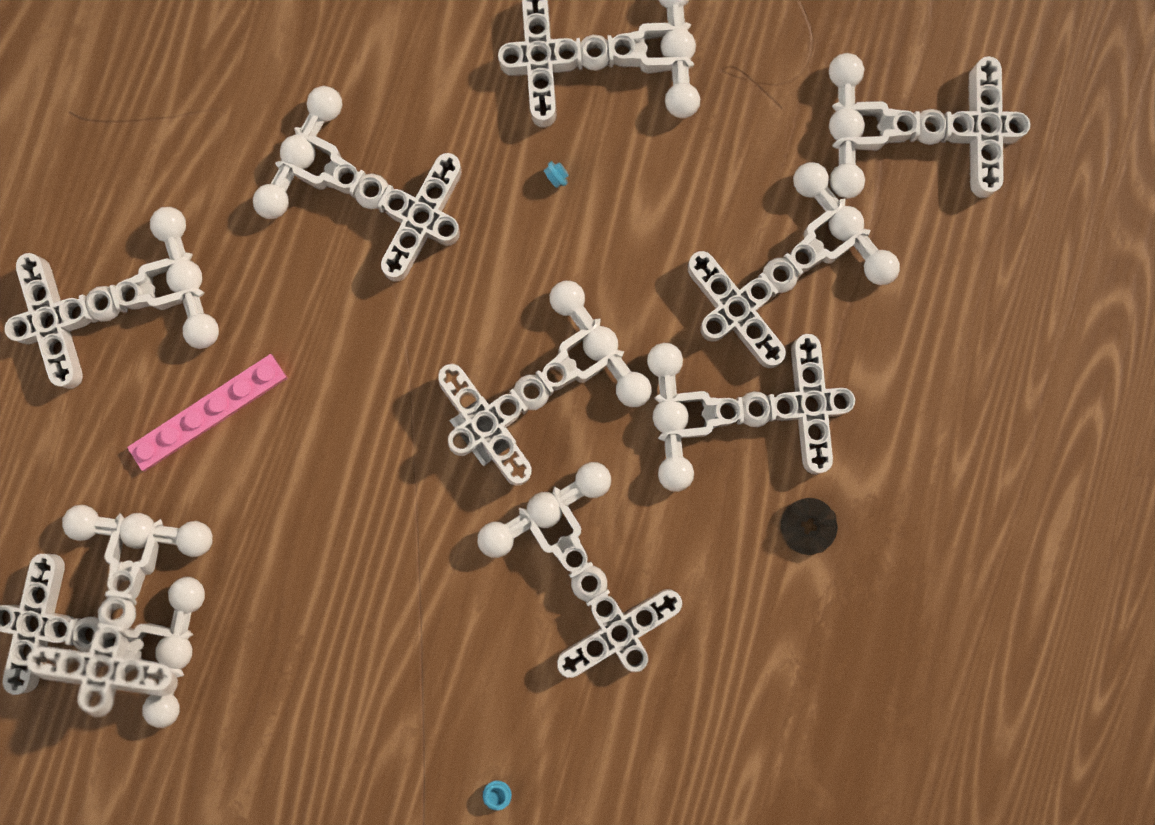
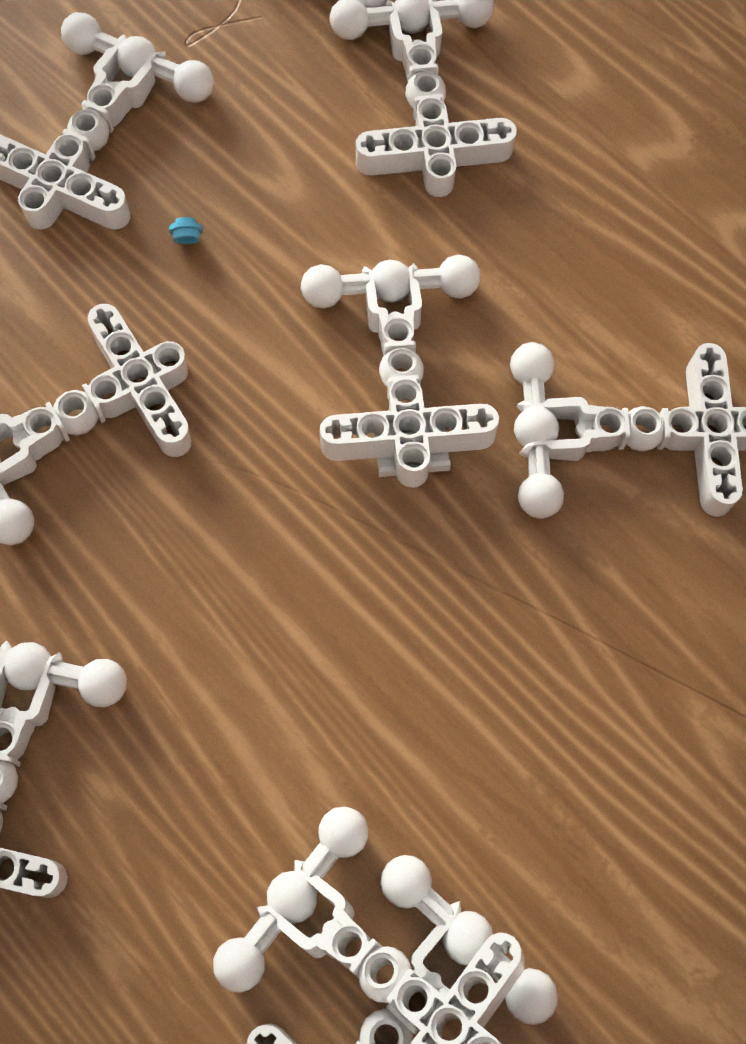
camera: 60 degrees left, 15 degrees down
(207, 412) = (201, 739): bright pink plate -> none
(672, 416) = (570, 135): white piece -> none
(822, 518) = (696, 186): clear smoke plate -> none

